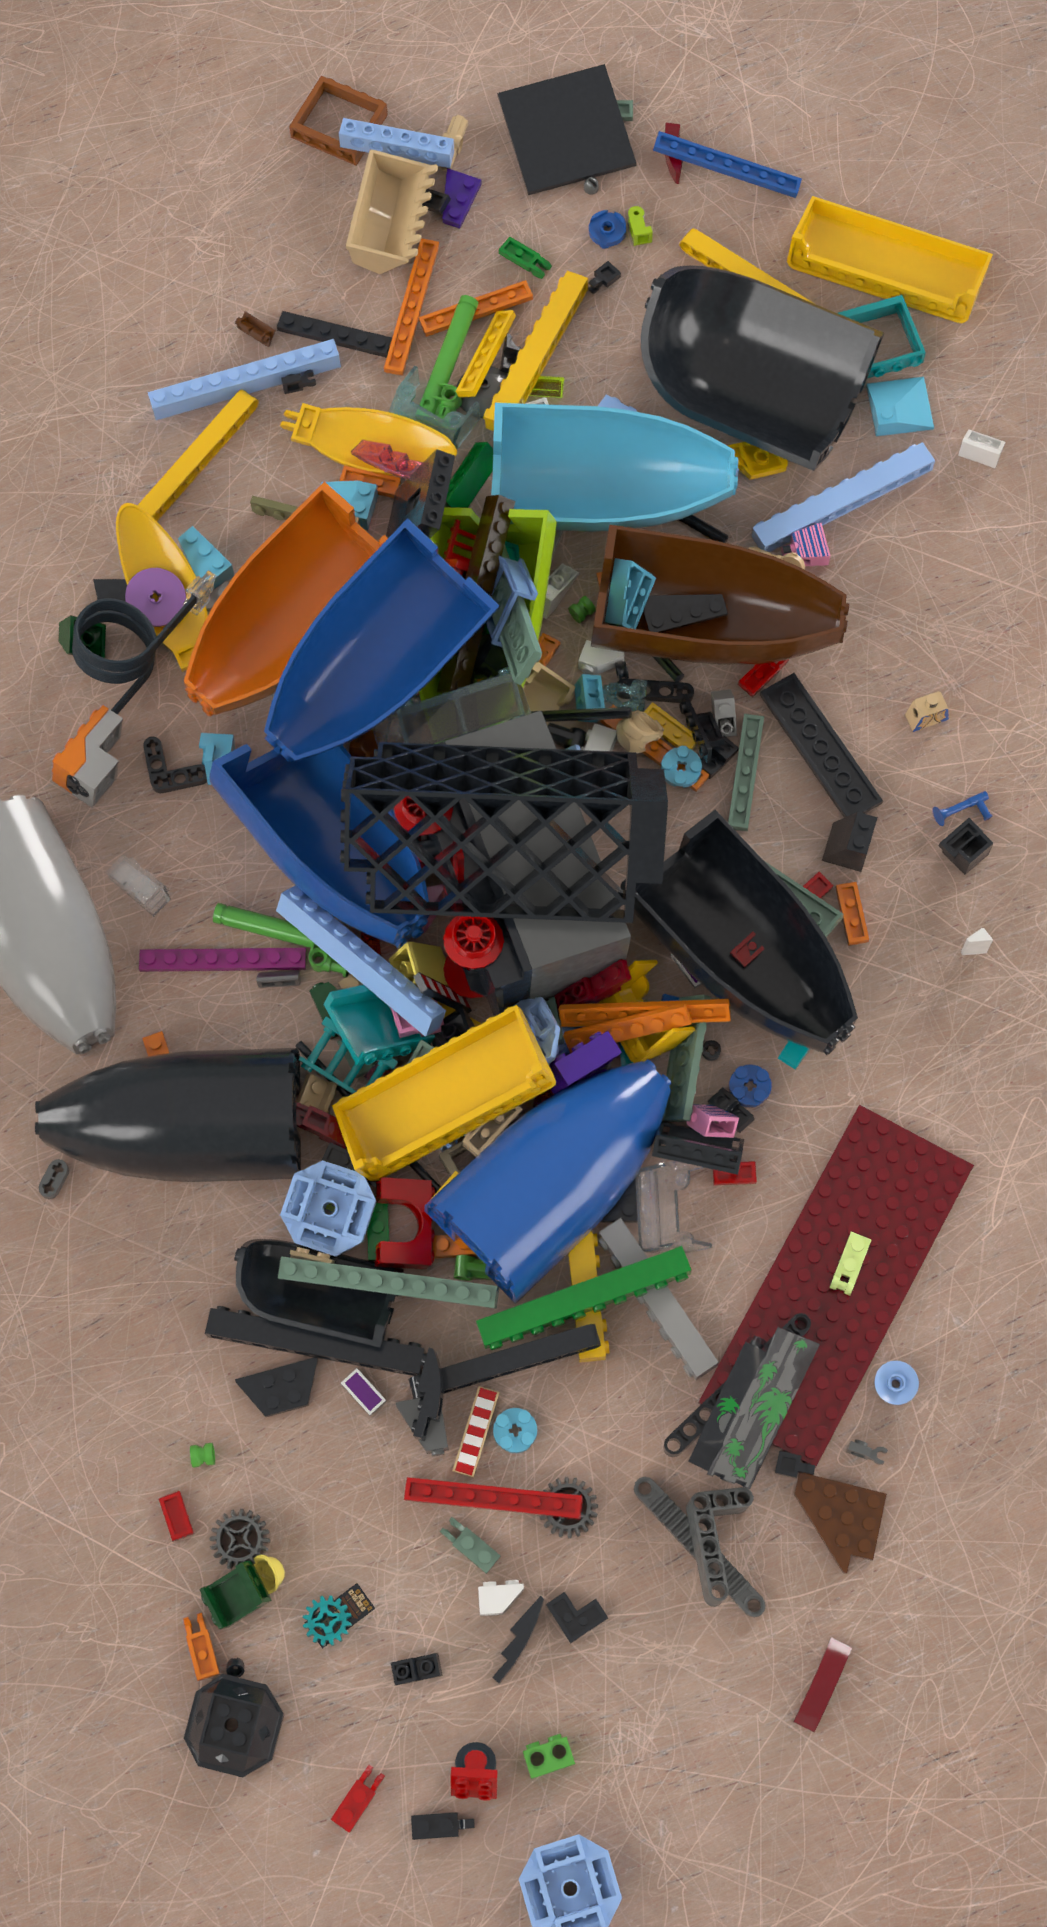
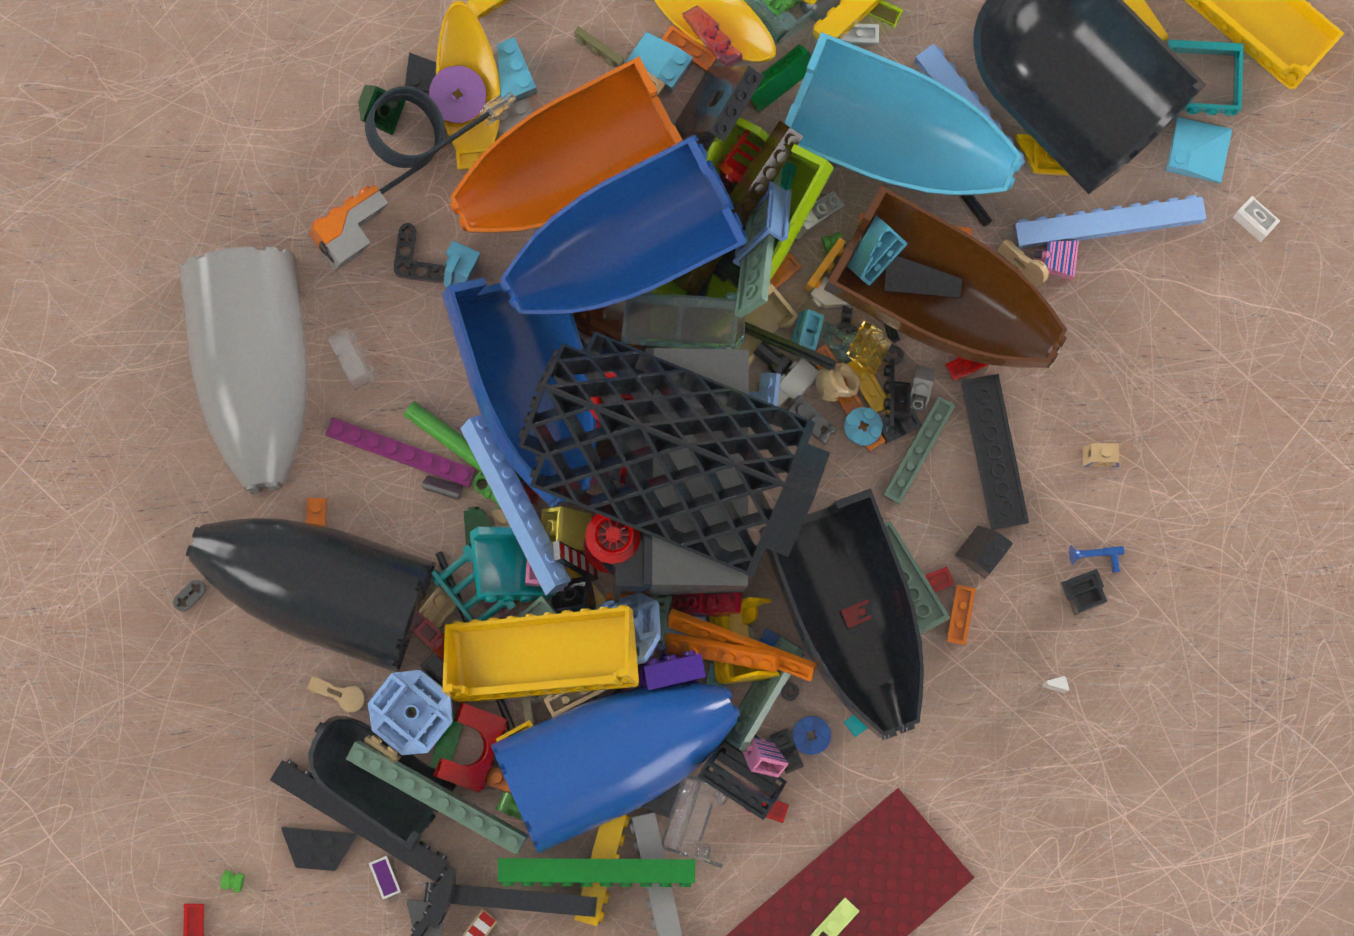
camera: 15 degrees right, 10 degrees up
(261, 1221) = (351, 699): none -> tan piece
(584, 627) = (826, 265): none -> light orange wing
(657, 688) = (869, 347): none -> clear yellow plate

